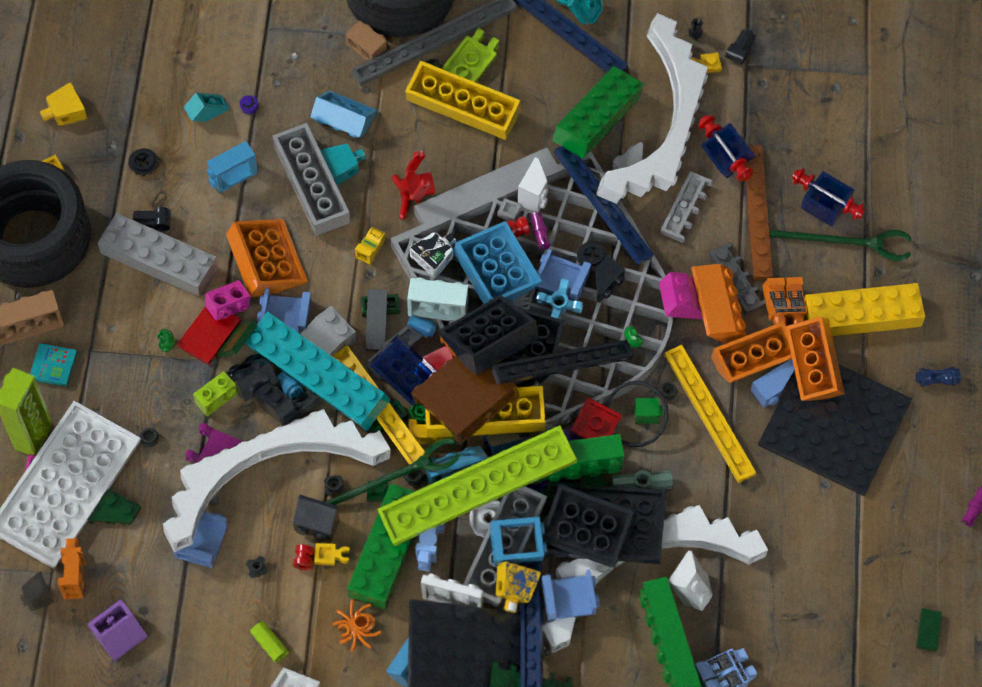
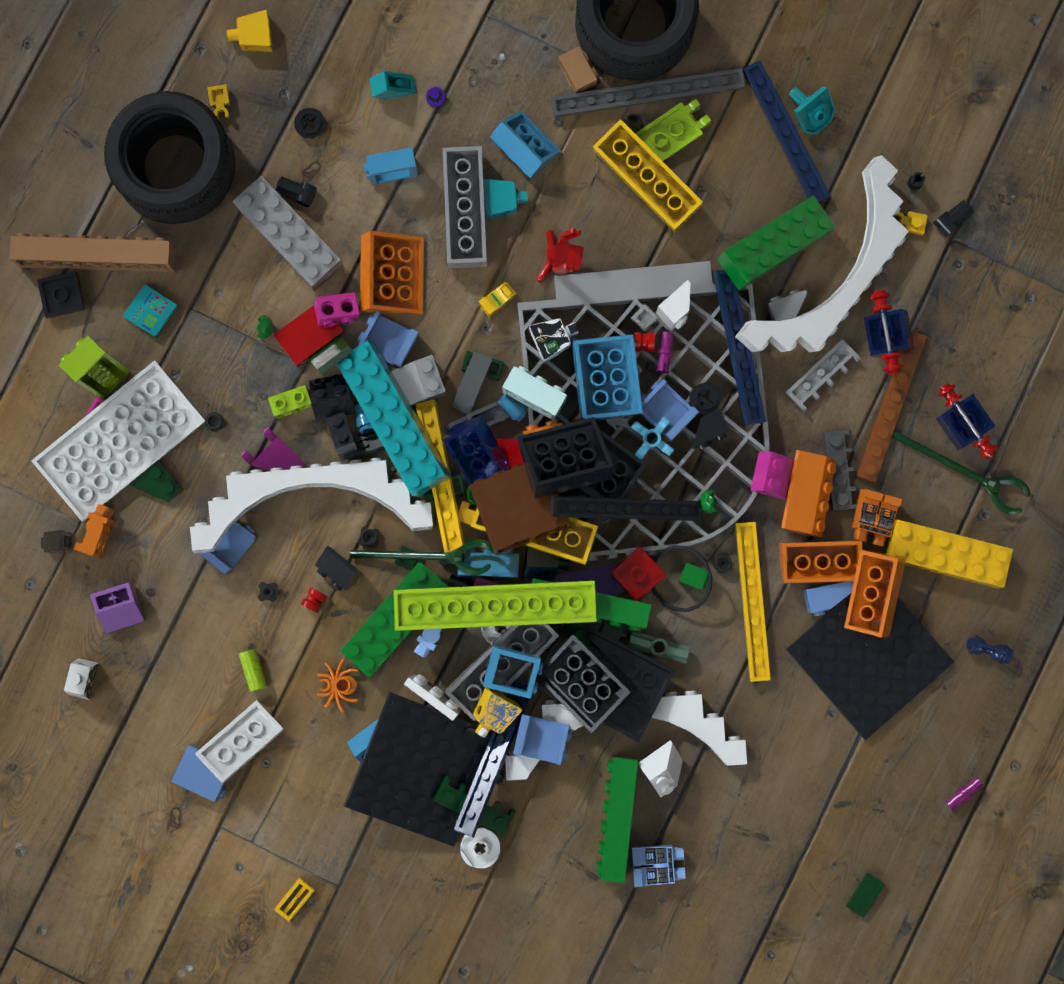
camera: 20 degrees right, 20 degrees up
(327, 554) = (338, 604): yellow plate -> none

